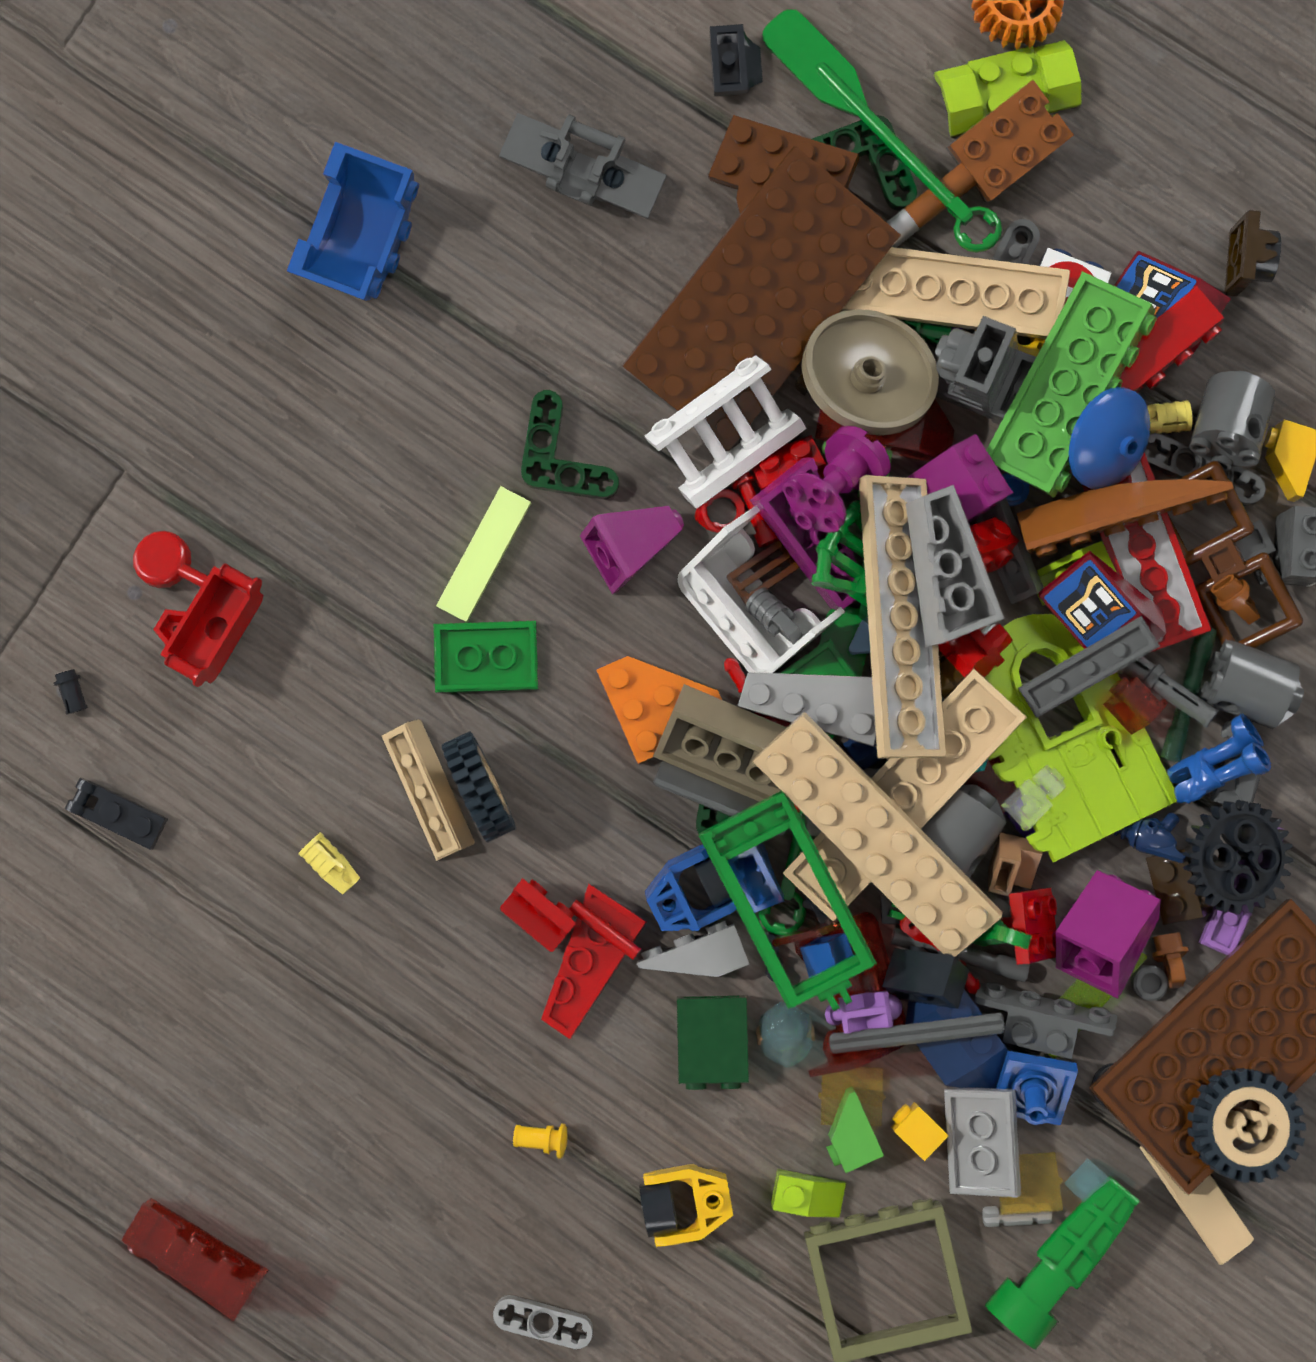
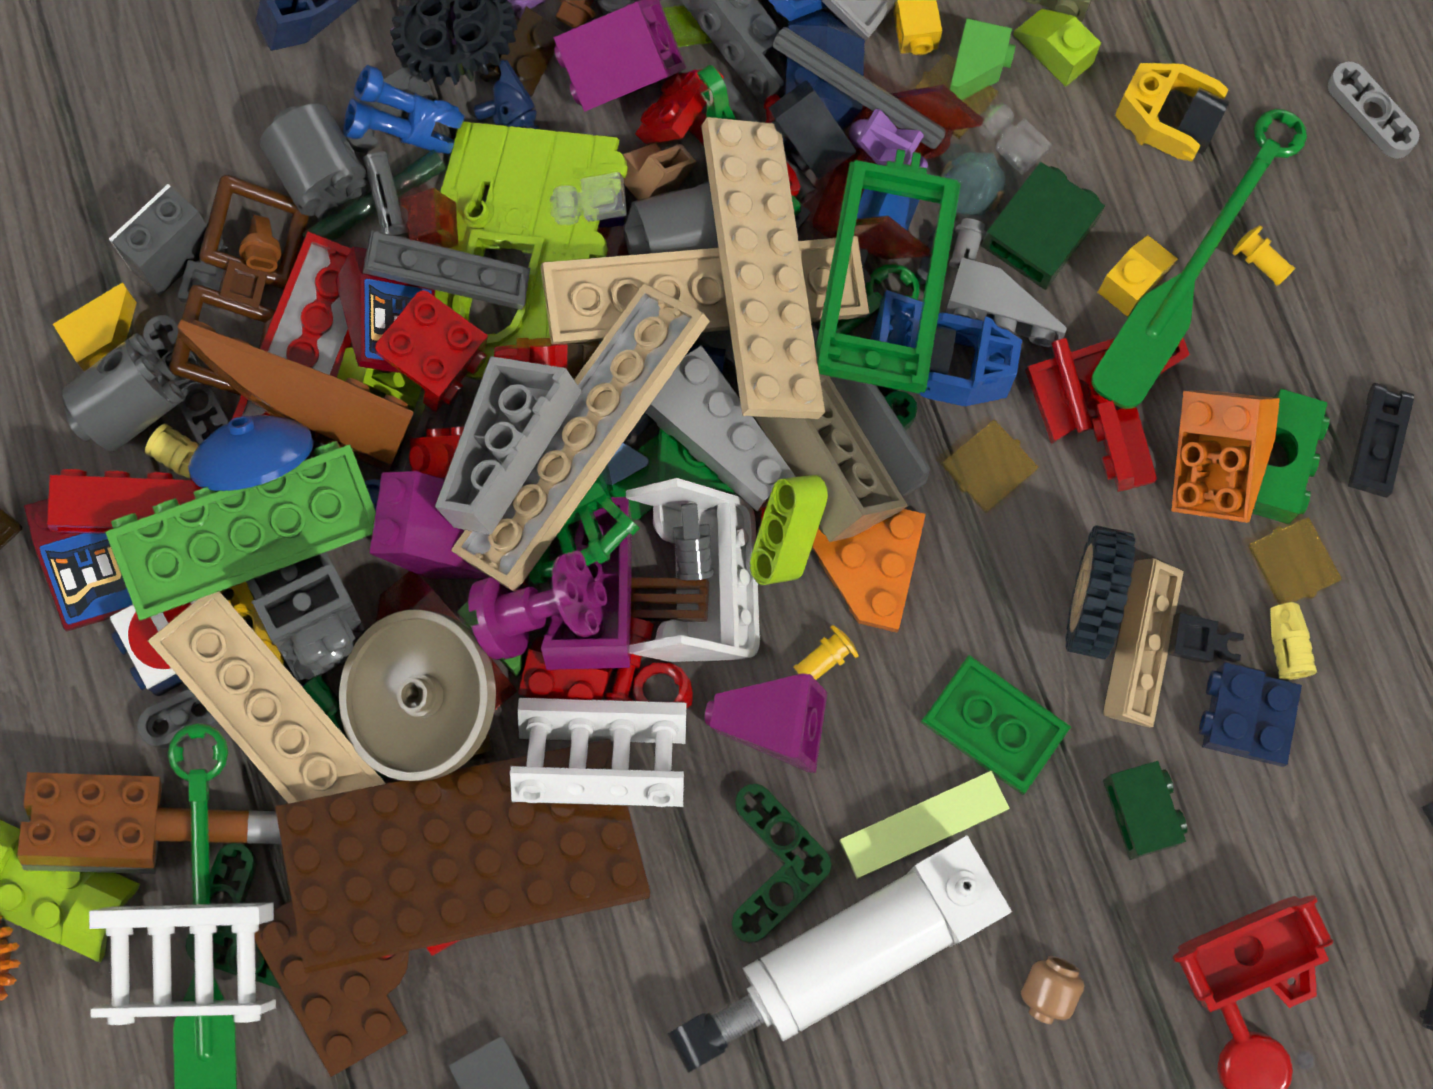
camera: 150 degrees left, 10 degrees down
(322, 792) = (1250, 714): none -> dark blue plate
(324, 509) = (1052, 989): none -> medium nougat head
(346, 671) = (1145, 809): none -> dark green brick
(365, 926) = (1295, 562): none -> clear yellow piece
(366, 1060) = (1381, 441): none -> black plate
(392, 817) = (1198, 639): none -> black plate
(428, 1024) = (1298, 430): none -> green arch
(437, 500) = (854, 952): none -> white piece
(467, 960) = (1222, 453): none -> orange slope
(579, 1035) = (1166, 311): none -> green piece
(619, 1057) = (1136, 274): none -> yellow slope
(620, 835) = (990, 466): none -> clear yellow piece
(630, 613) = (827, 654): none -> yellow pin
(717, 671) = (788, 529): none -> lime beam
(755, 986) = (970, 234): none -> light grey pin
(774, 1091) = (1020, 144): none -> clear plate
(885, 133) = (161, 923): none -> white fence
(1053, 605) = (433, 348): none -> red bracket

